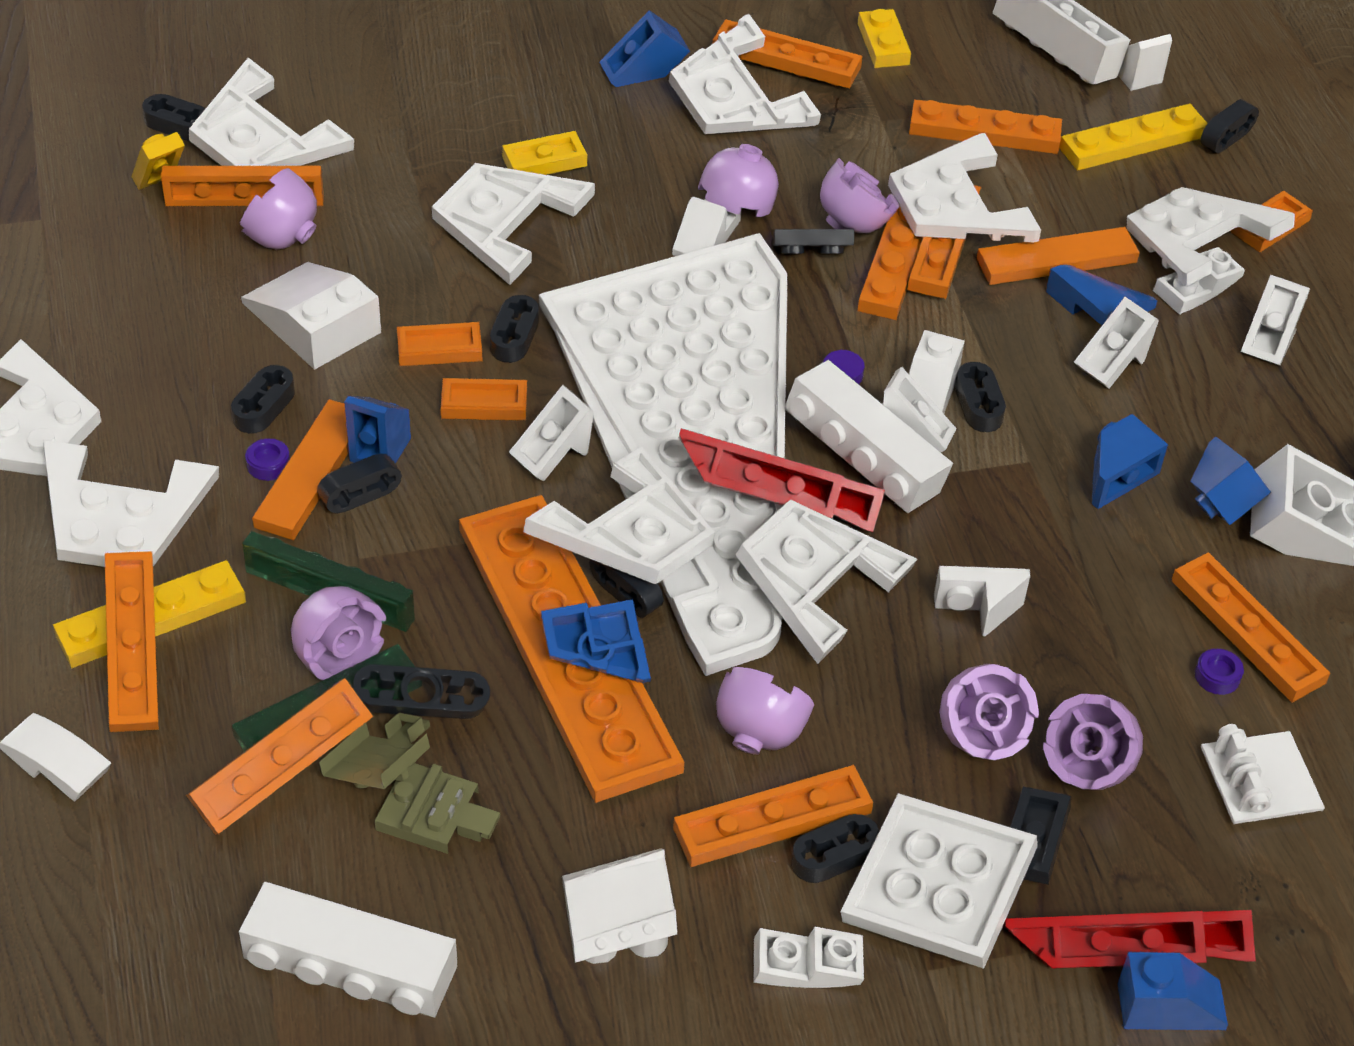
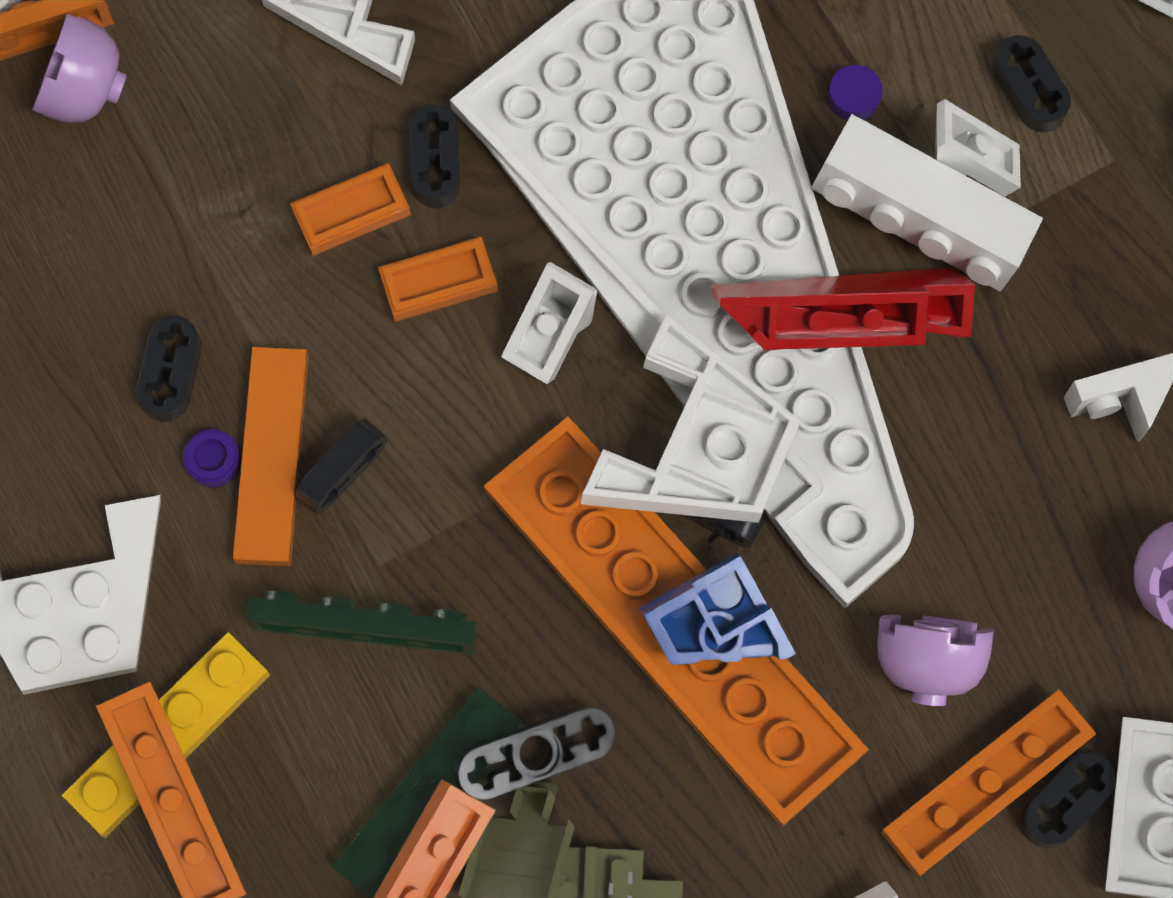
camera: 15 degrees left, 25 degrees up
(317, 311) = (175, 208): white slope -> none
(336, 630) = (404, 704): lavender cylinder -> none
(376, 428) = (335, 383): blue slope -> none
(804, 555) = (909, 422): white wing -> none
(937, 366) = (973, 69): white slope -> none

